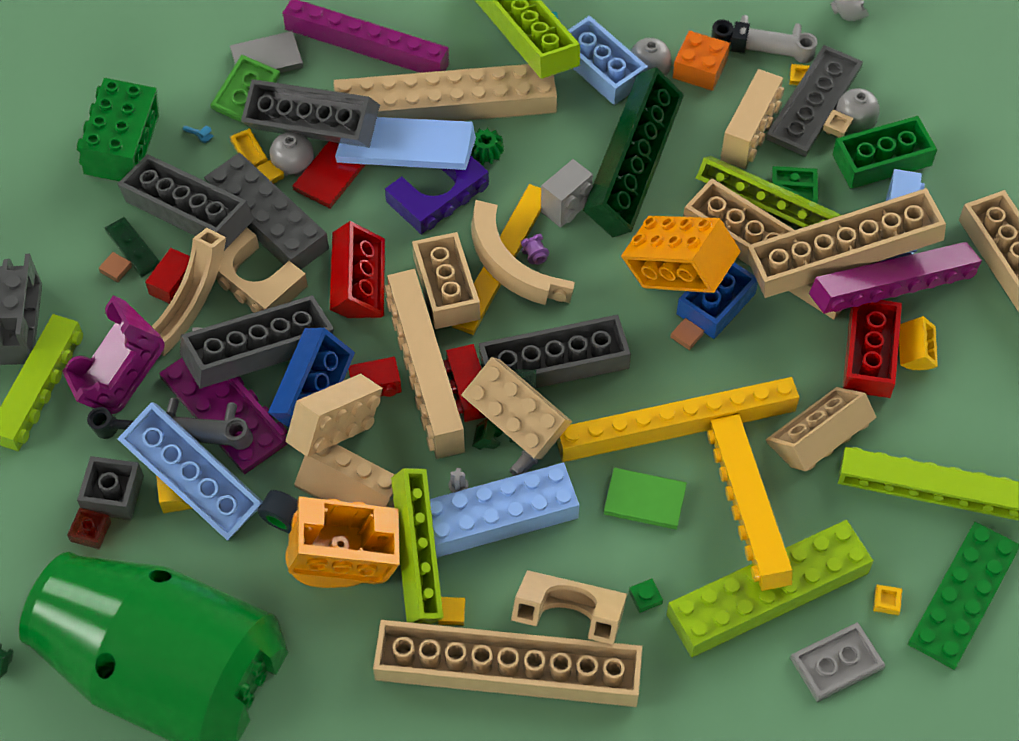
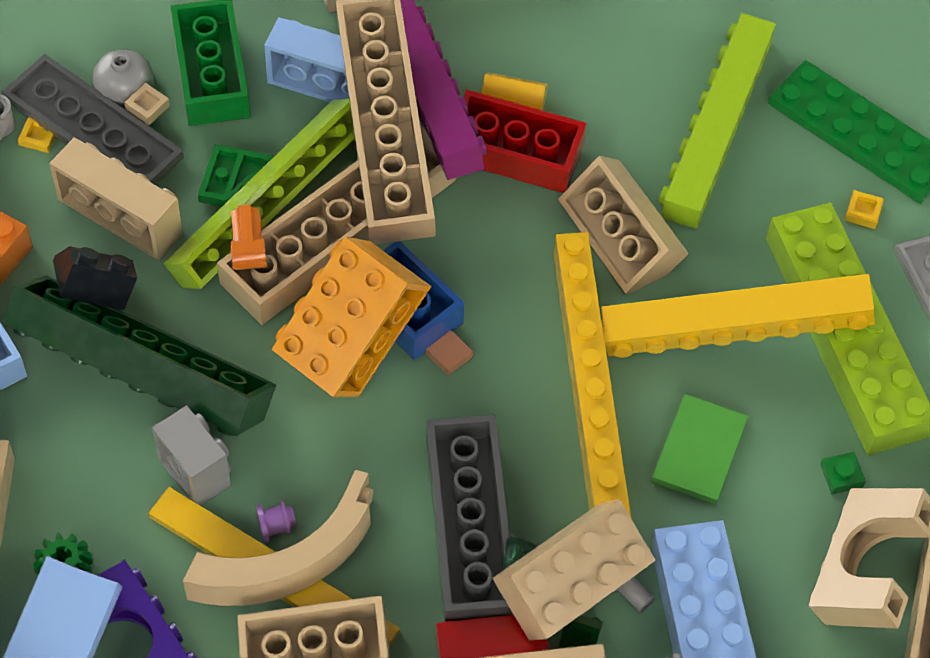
camera: 85 degrees left, 0 degrees up
(683, 115) = (94, 277): none -> black slope
(723, 189) = (247, 242): none -> orange piece

